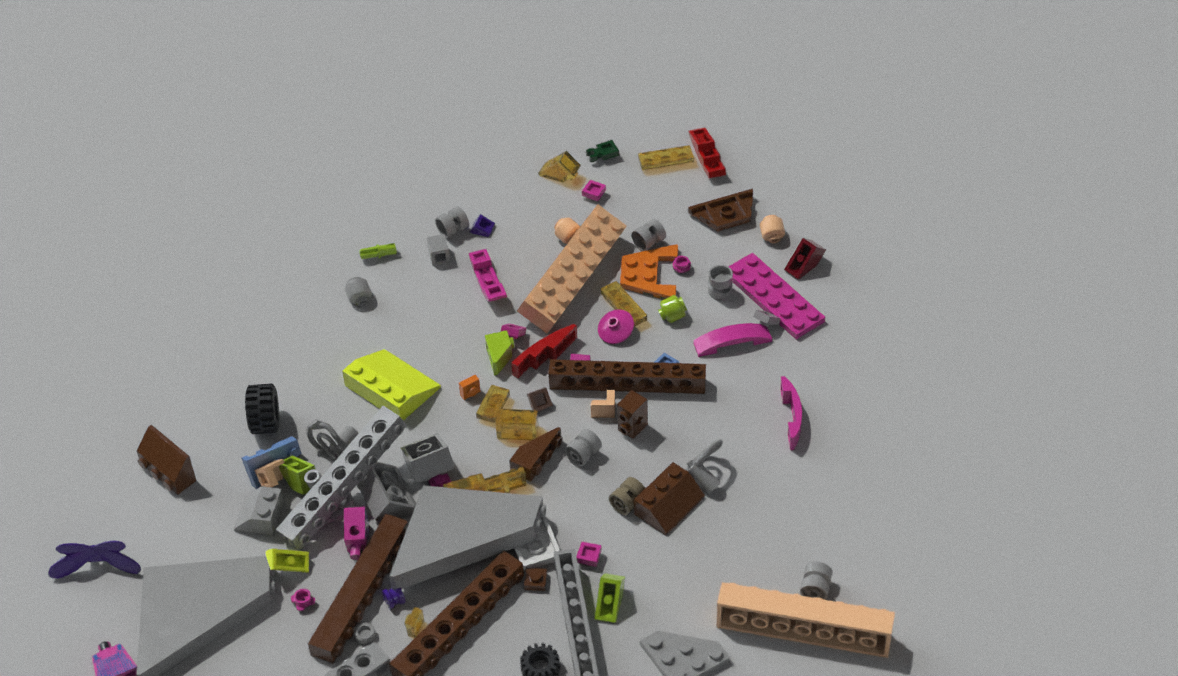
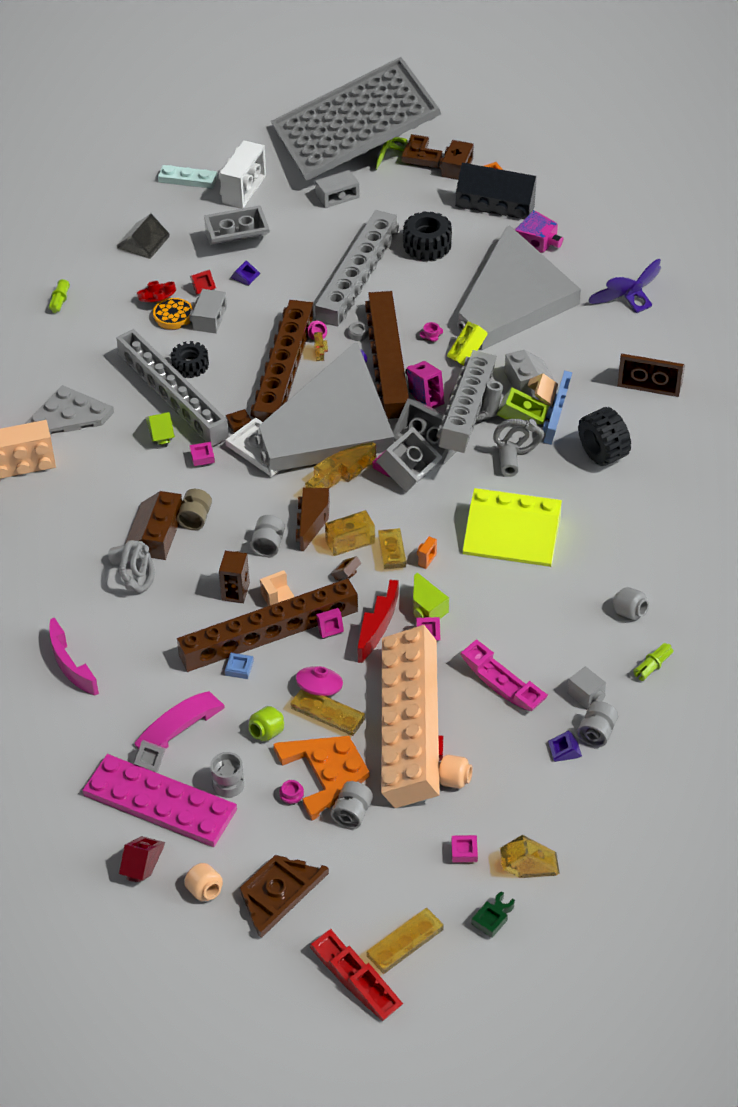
camera: 150 degrees right, 0 degrees up
(401, 642) = (316, 326): none -> dark pink plate

